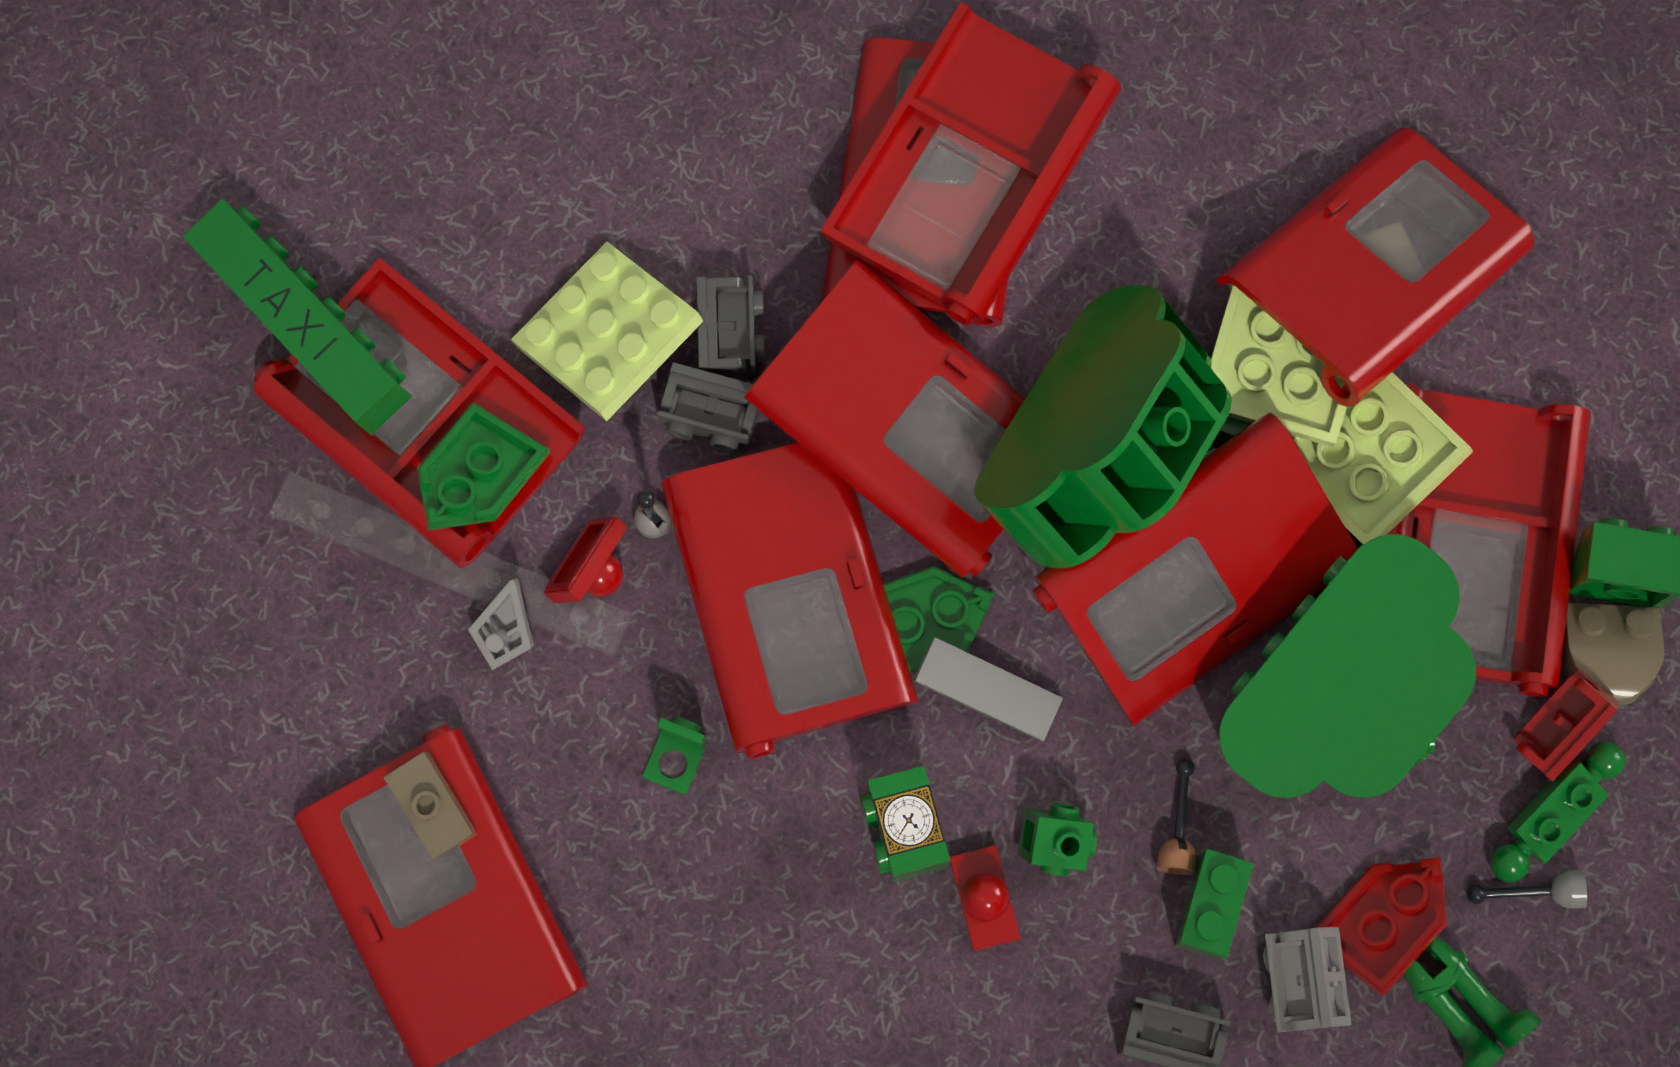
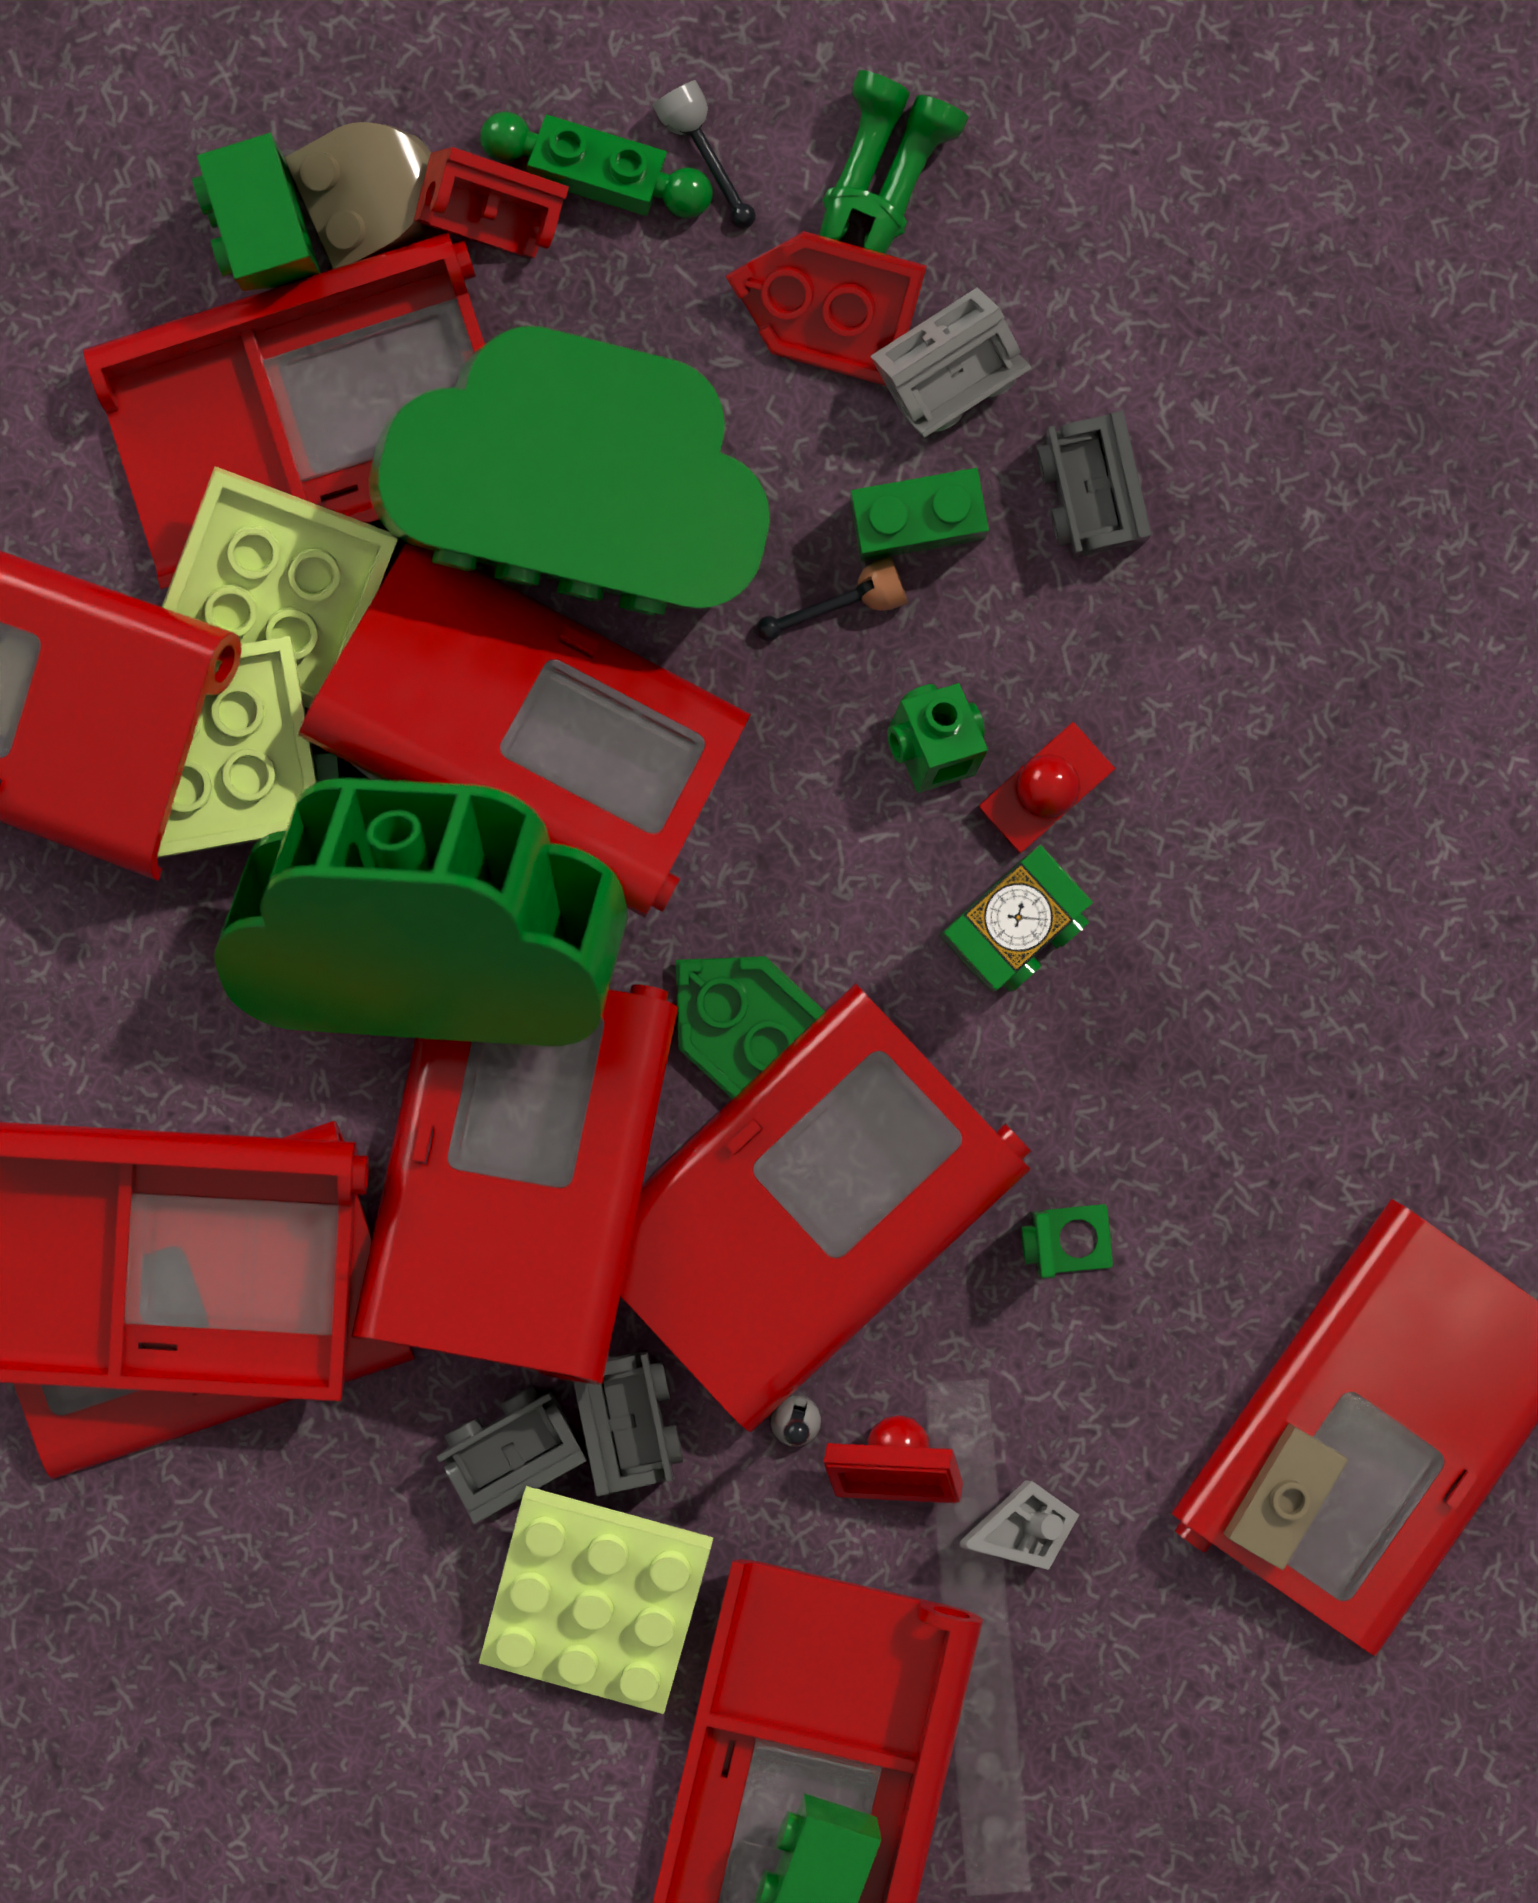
camera: 120 degrees left, 10 degrees up
(476, 470) = (856, 1662): green tile -> none
(988, 689) = (798, 908): light grey tile -> none

